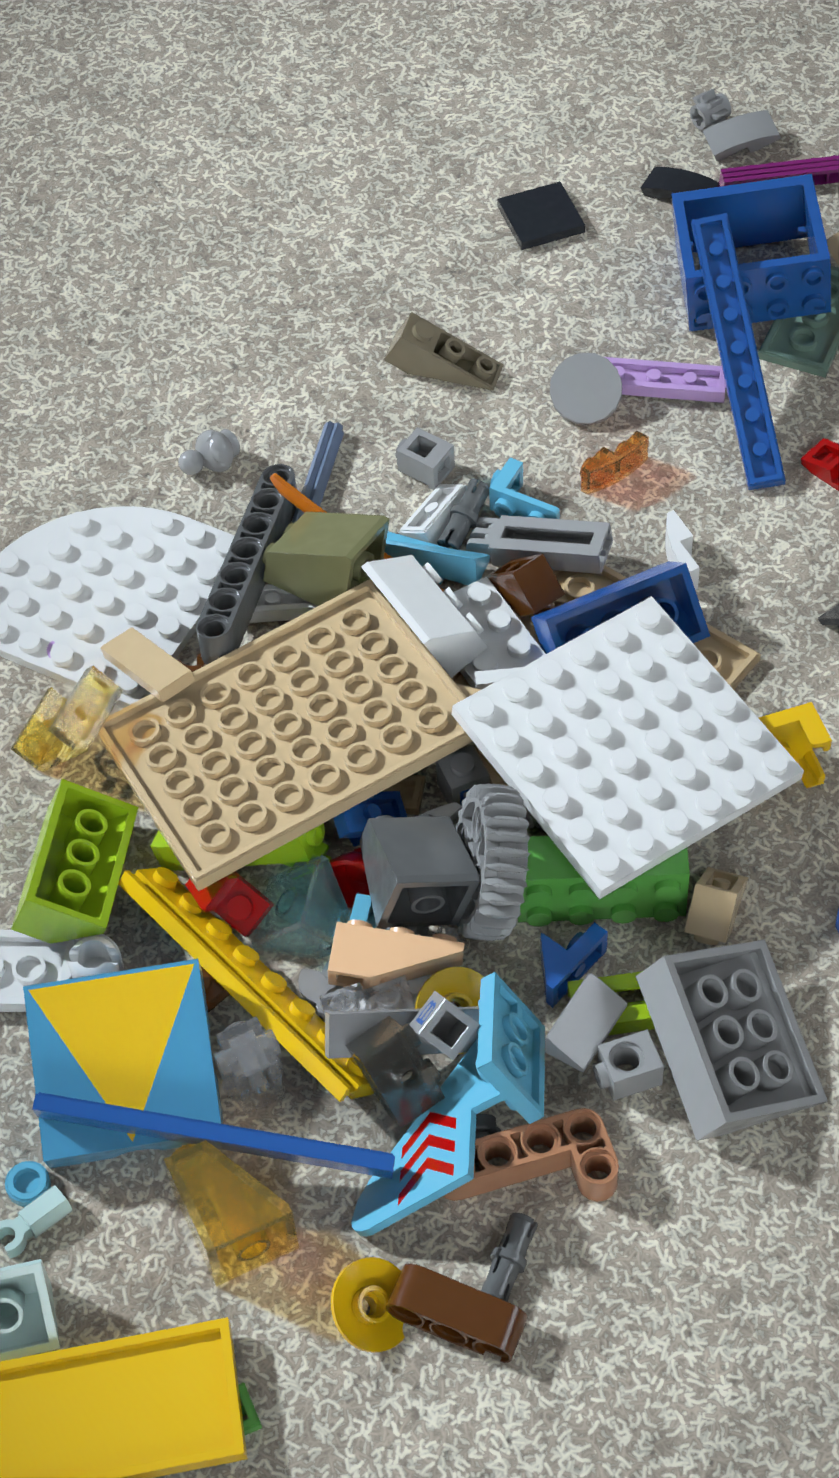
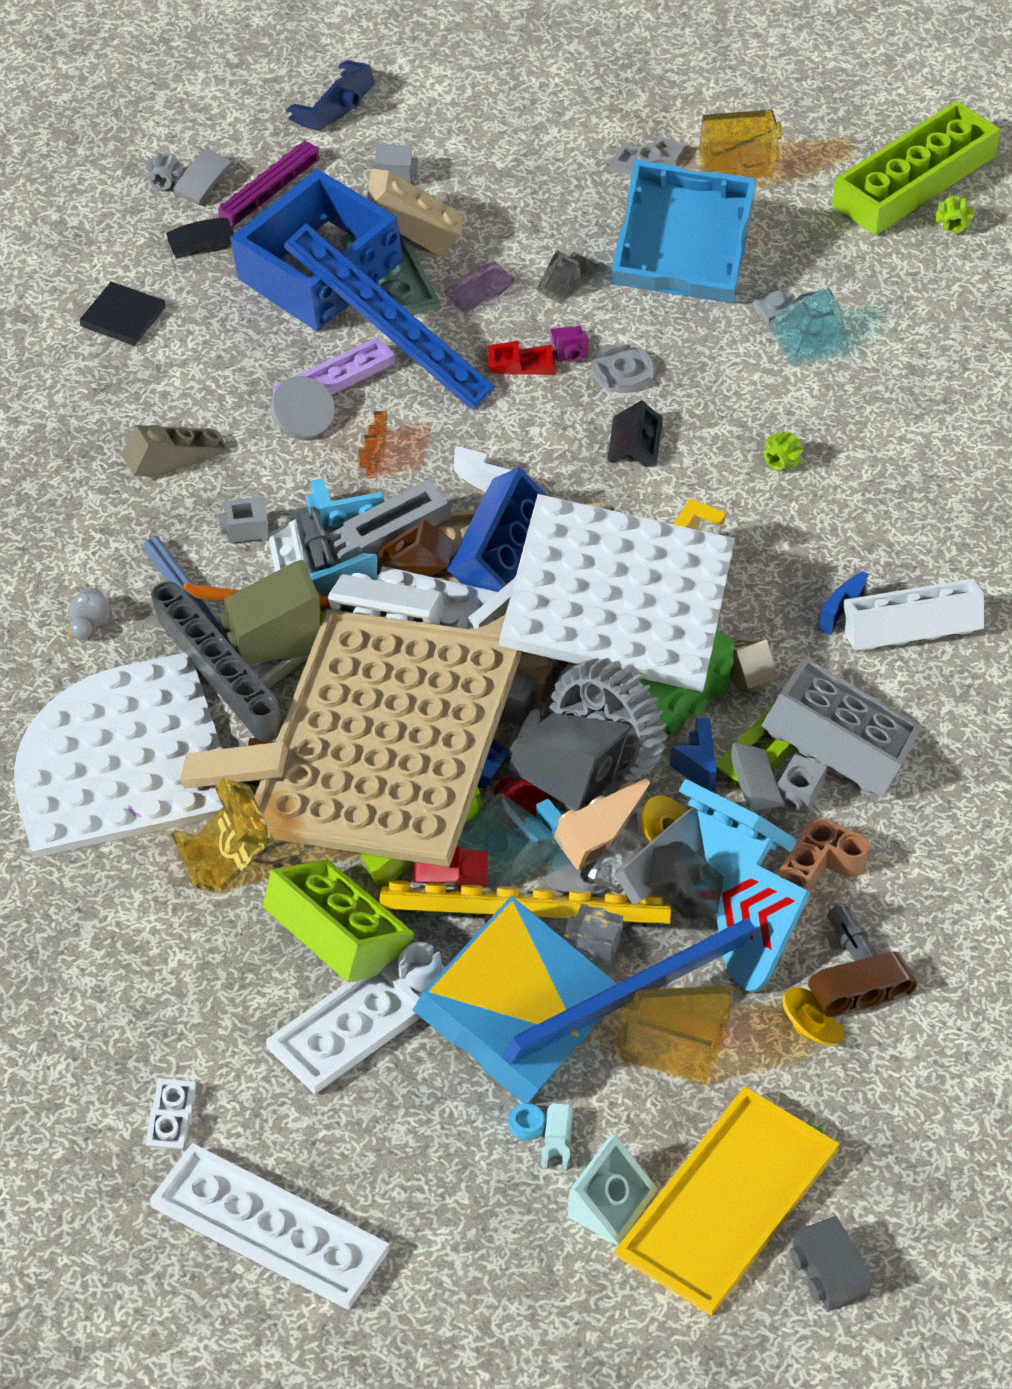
camera: 50 degrees left, 5 degrees down
(444, 1025) = (693, 825): light grey brick -> none

